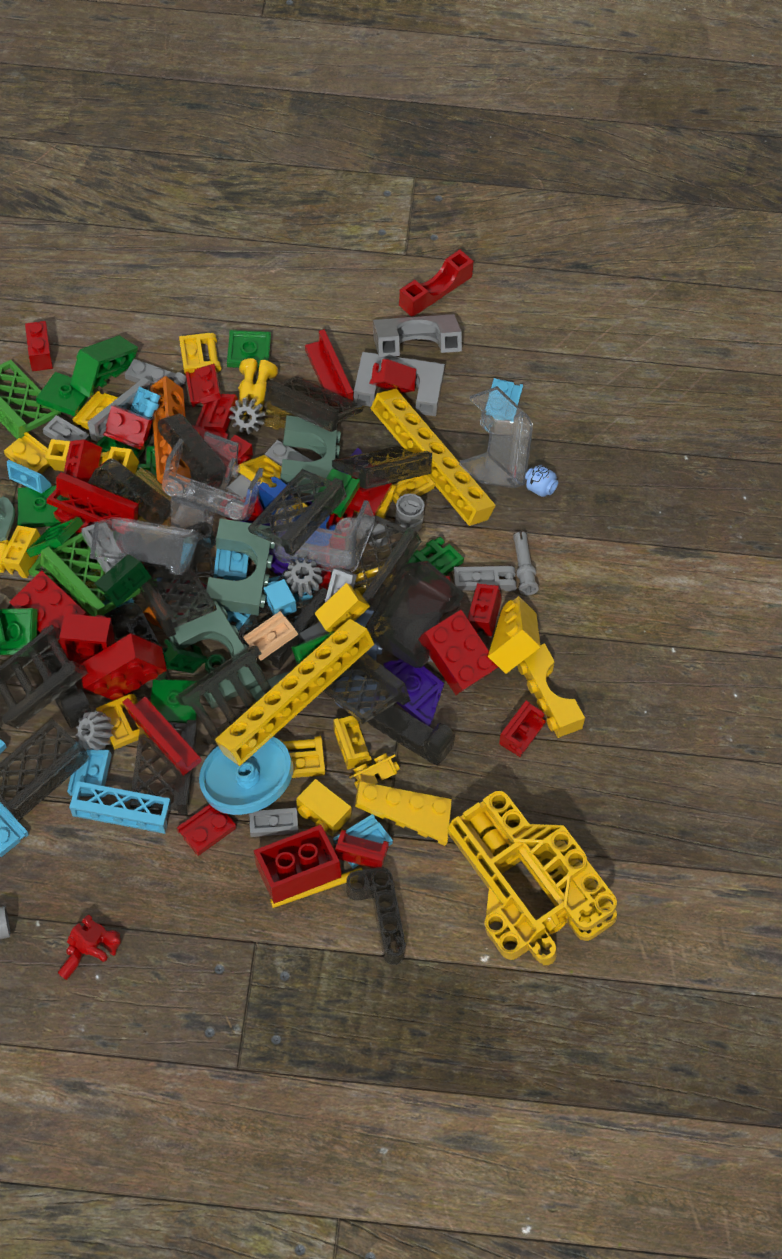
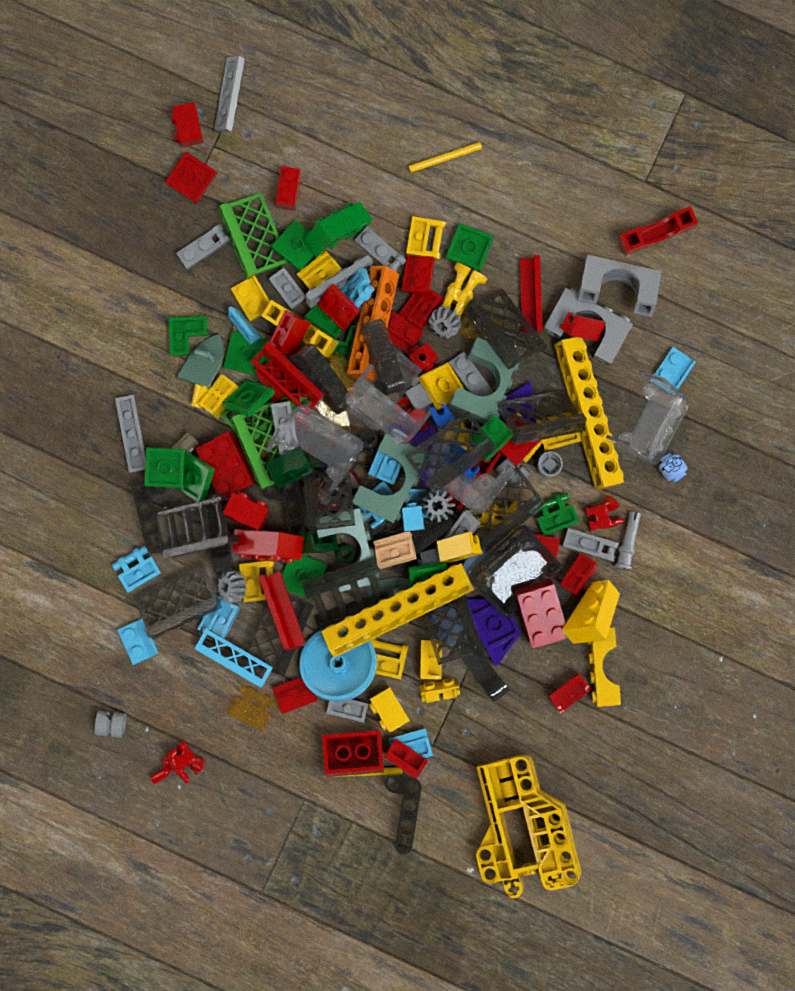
camera: 20 degrees right, 25 degrees up
(158, 865) = (249, 713): none -> clear yellow plate
(194, 283) = (445, 157): none -> yellow bar
(417, 811) = (455, 734): yellow wing -> none
(483, 546) = (601, 515): none -> red animal

